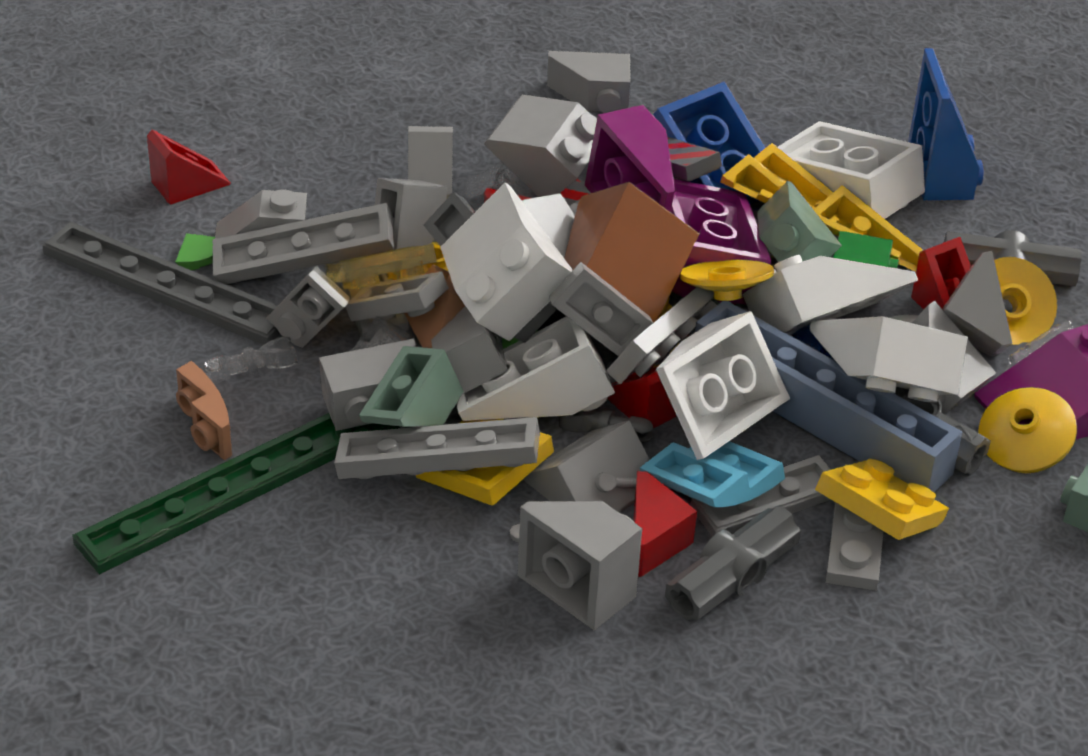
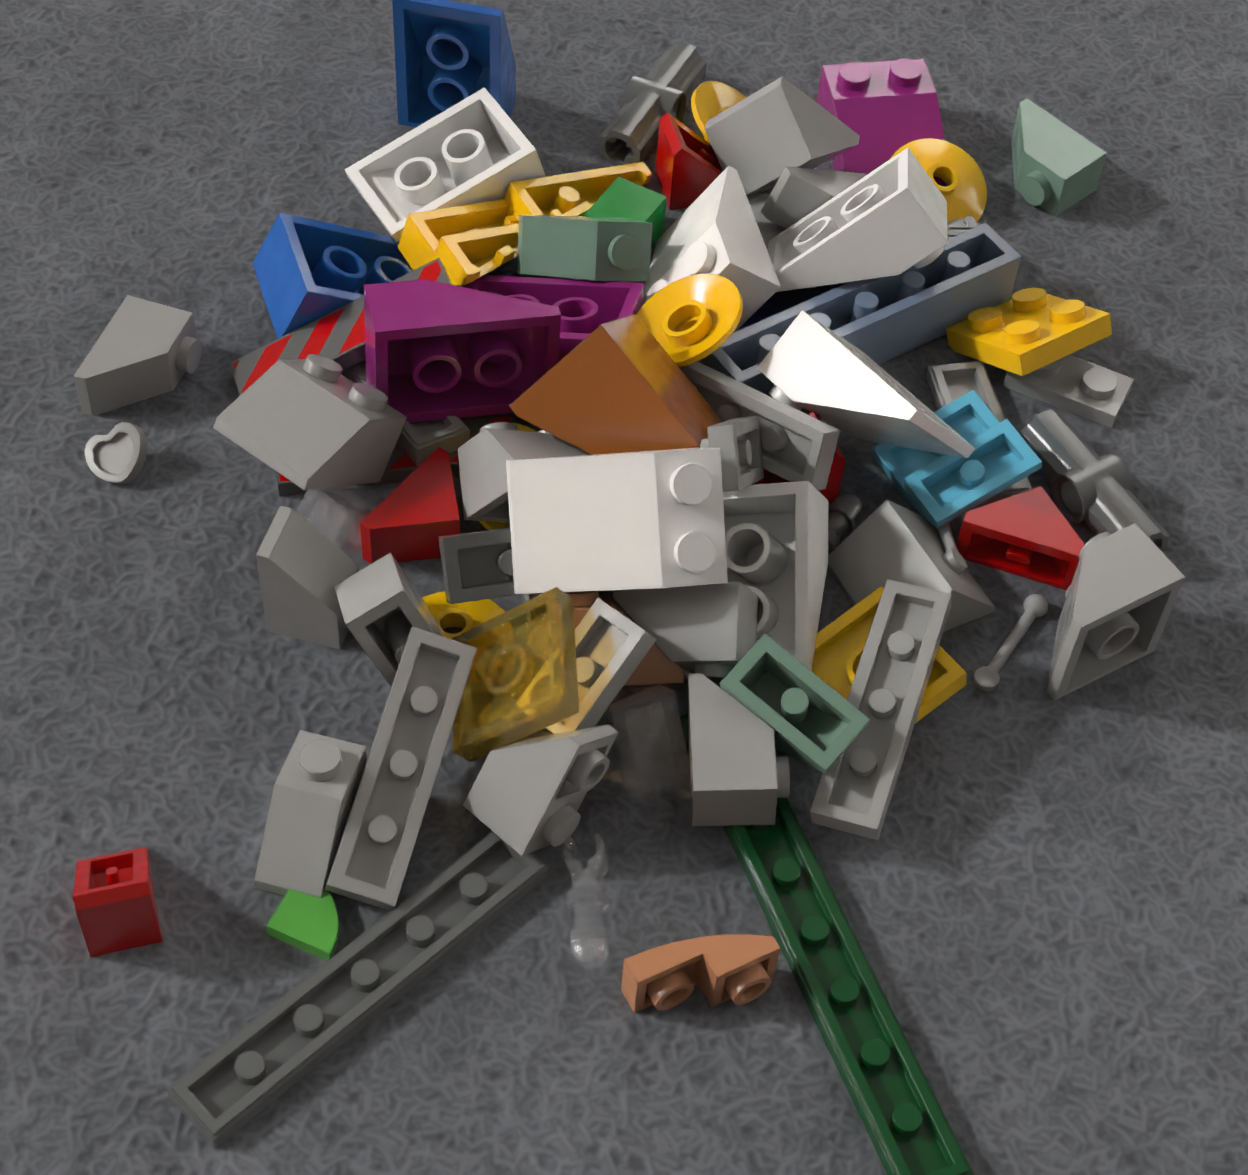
camera: 75 degrees left, 10 degrees up
(510, 95) = (118, 454): none -> light grey piece

